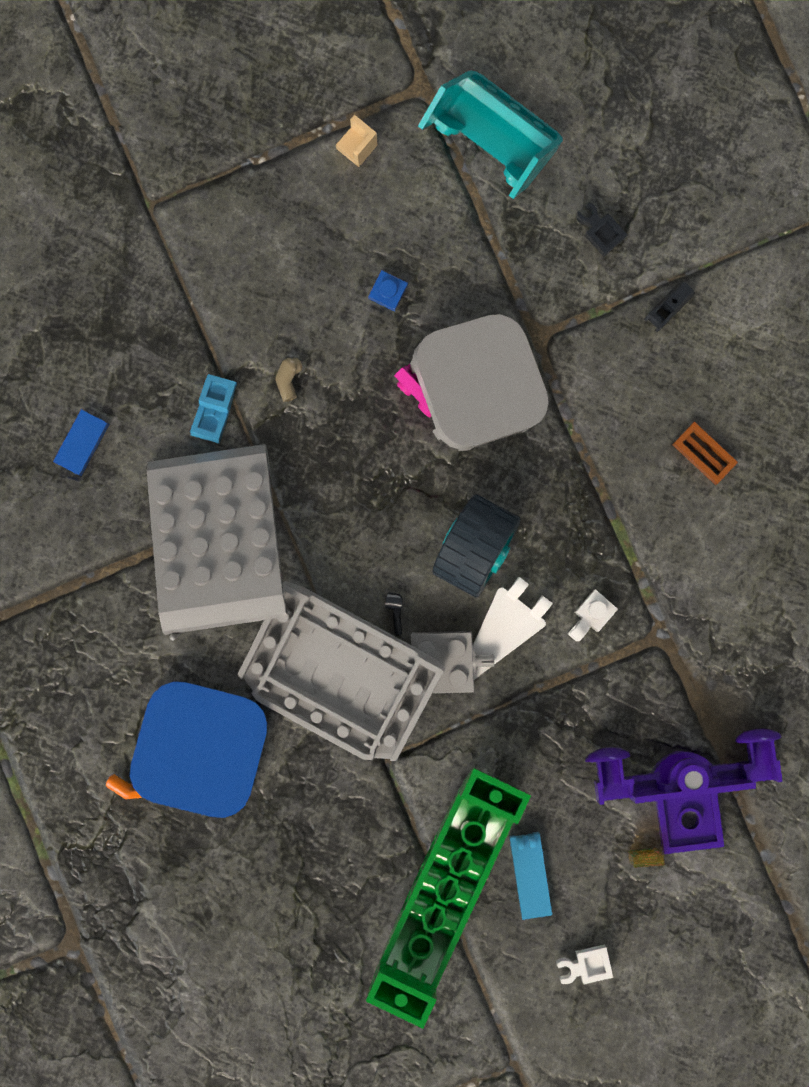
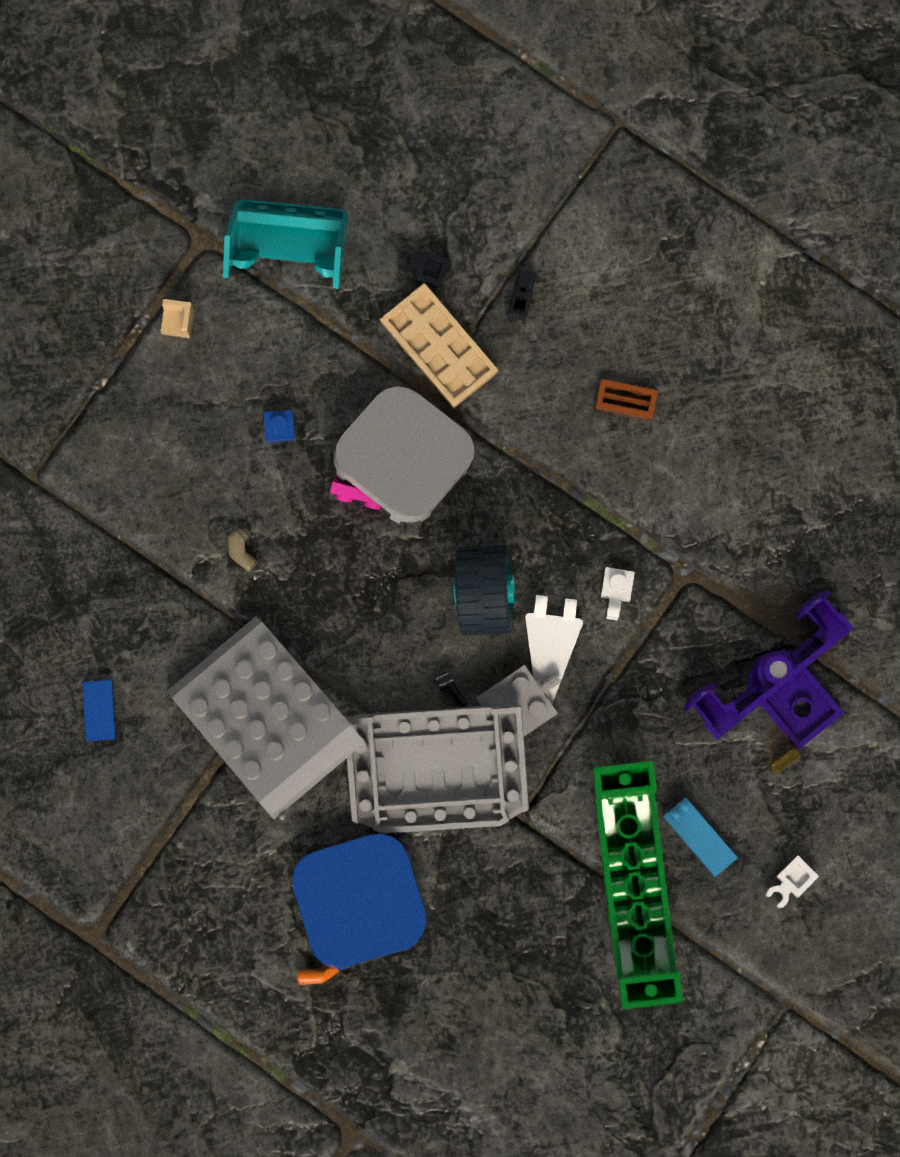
camera: 30 degrees left, 5 degrees down
(213, 408) = (193, 613): dark azure slope -> none
(570, 305) = (439, 345): none -> tan plate

